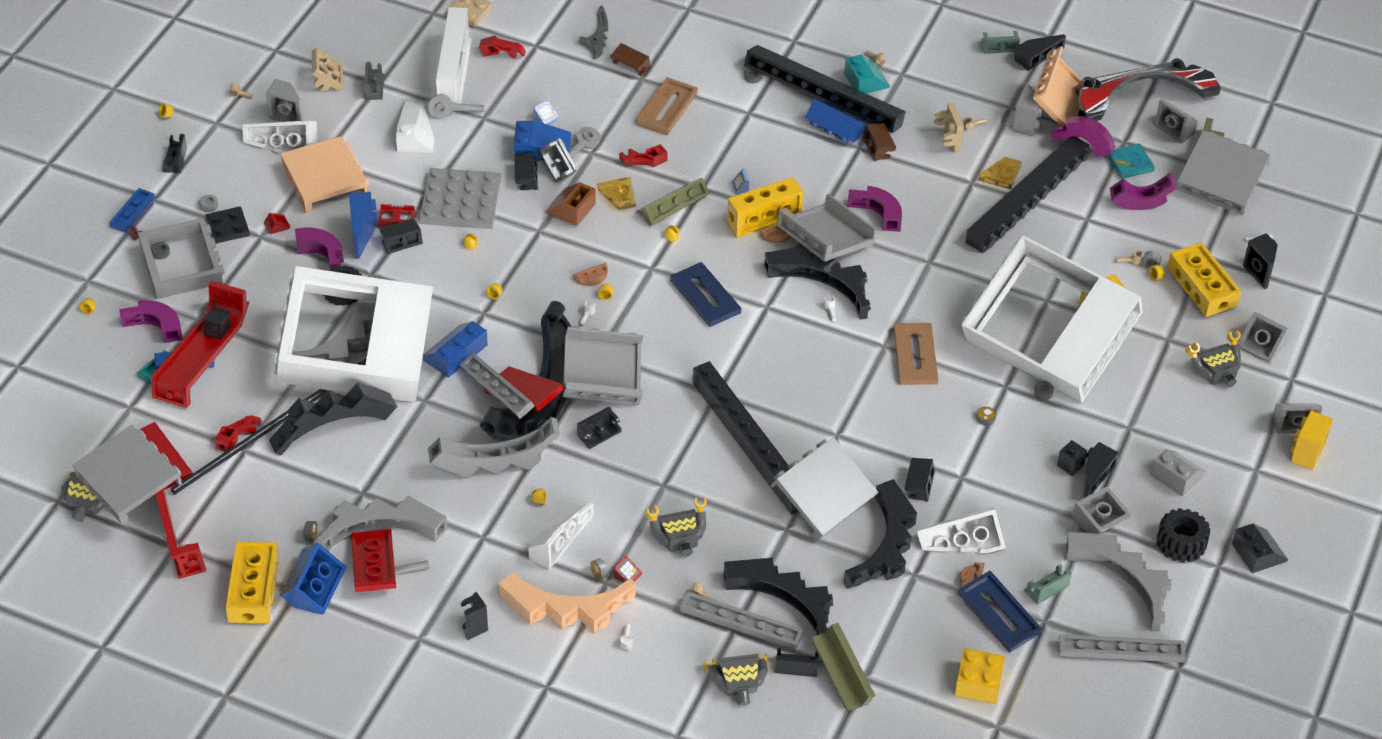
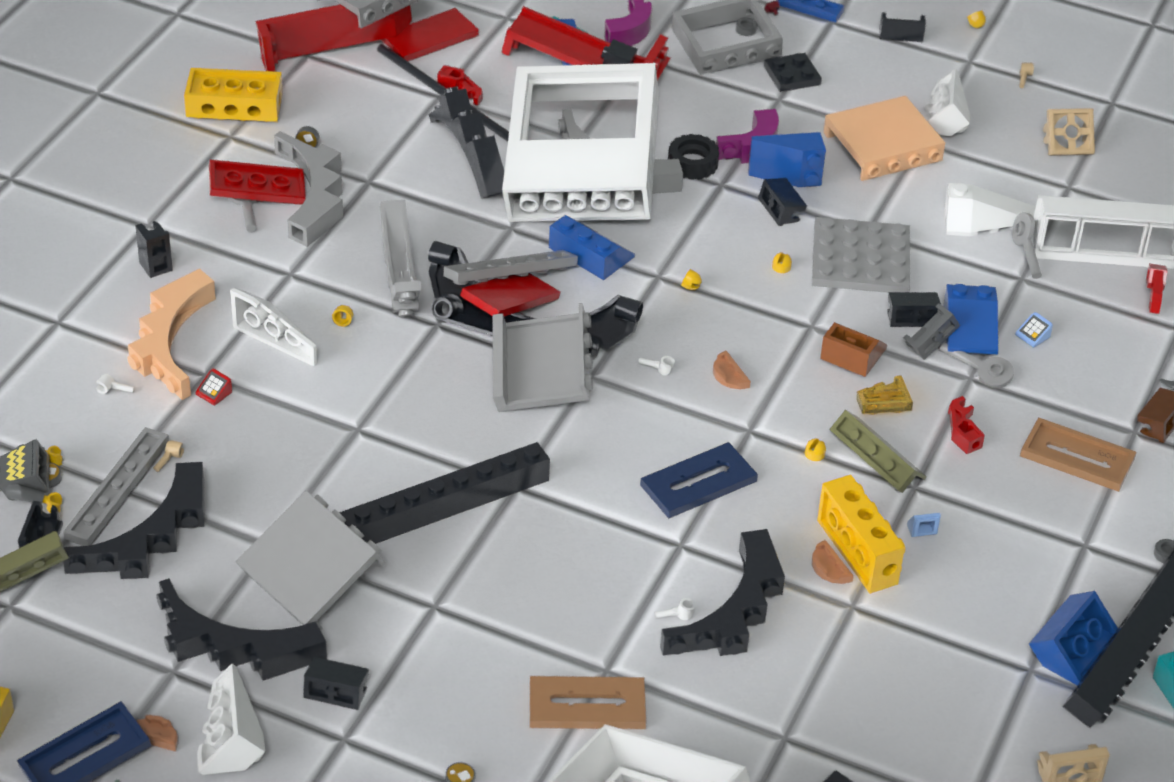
camera: 90 degrees right, 5 degrees down
(208, 203) = (827, 57): light grey tile -> none
(276, 223) = (799, 108): red slope -> none
(283, 102) = (999, 96): light grey slope -> none
(313, 579) = (234, 139): blue slope -> none
(373, 82) = (1063, 175): dark grey hinge -> none
(396, 210) = (829, 200): red piece -> none
(598, 427) = (451, 366): black hinge -> none
(599, 568) = (219, 360): tile -> none
(605, 291) = (696, 379): yellow hinge -> none
(679, 529) = (270, 428): dark grey torso -> none
(828, 229) = (819, 600): light grey panel -> none
(878, 141) = (1037, 683): reddish brown hinge -> none
(881, 202) = (889, 685): magenta arch -> none

